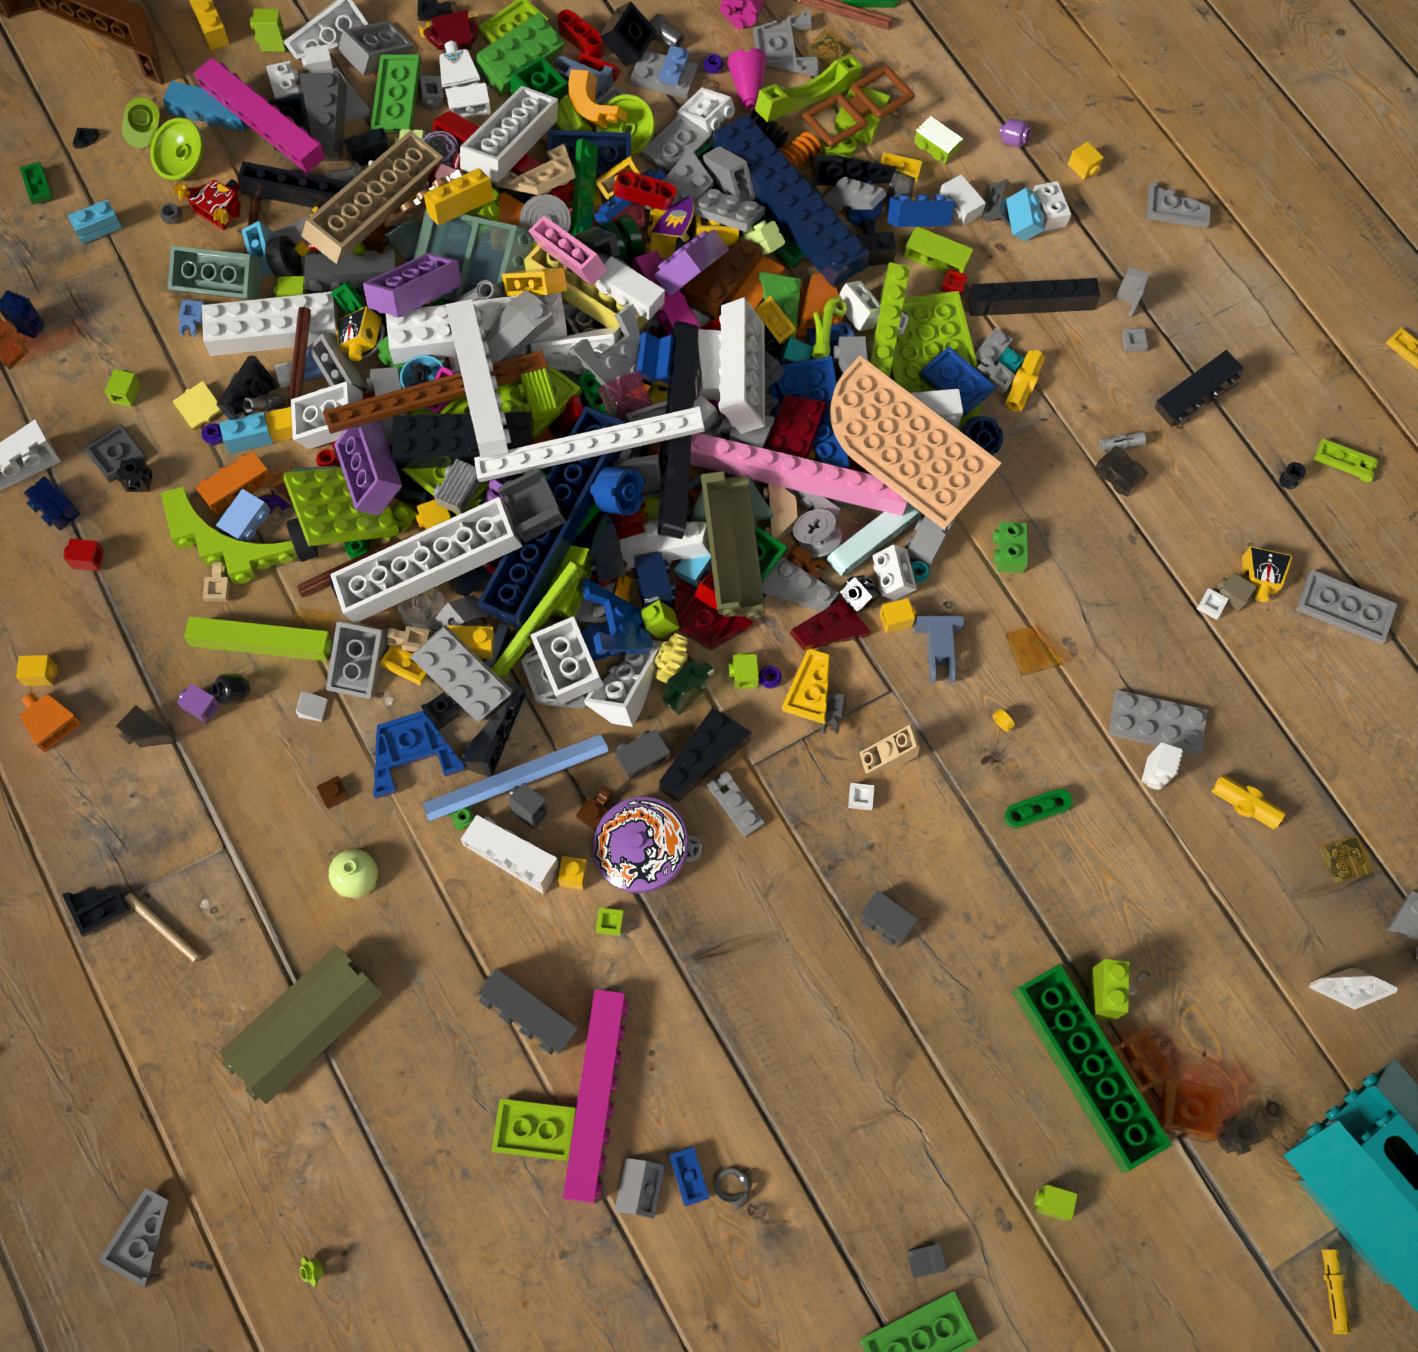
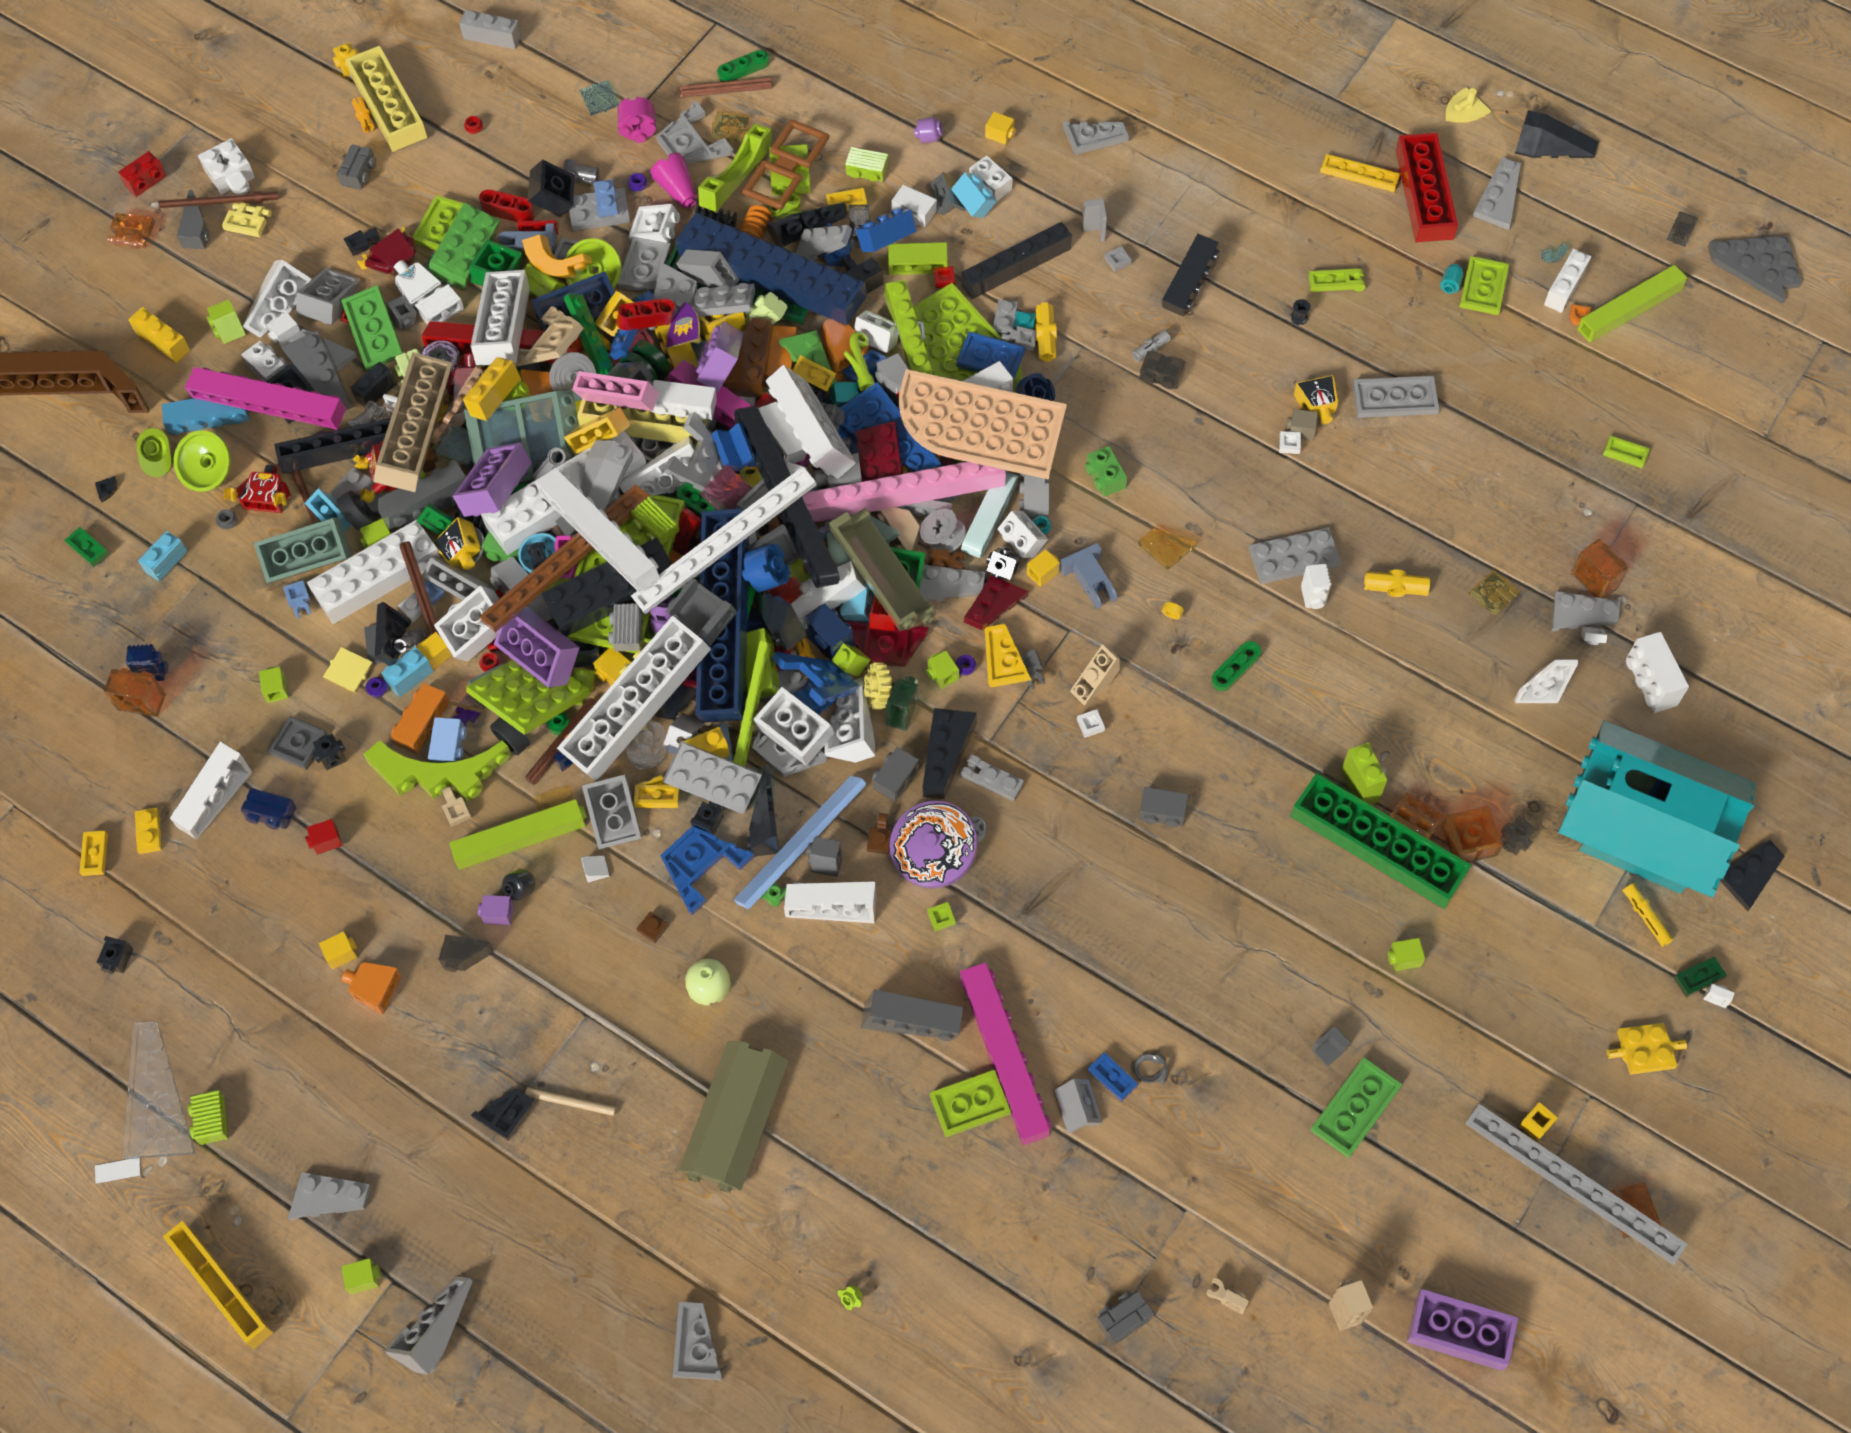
camera: 20 degrees left, 5 degrees down
(410, 639) = (651, 771): tan plate -> none
(572, 873) = (890, 893): yellow brick -> none

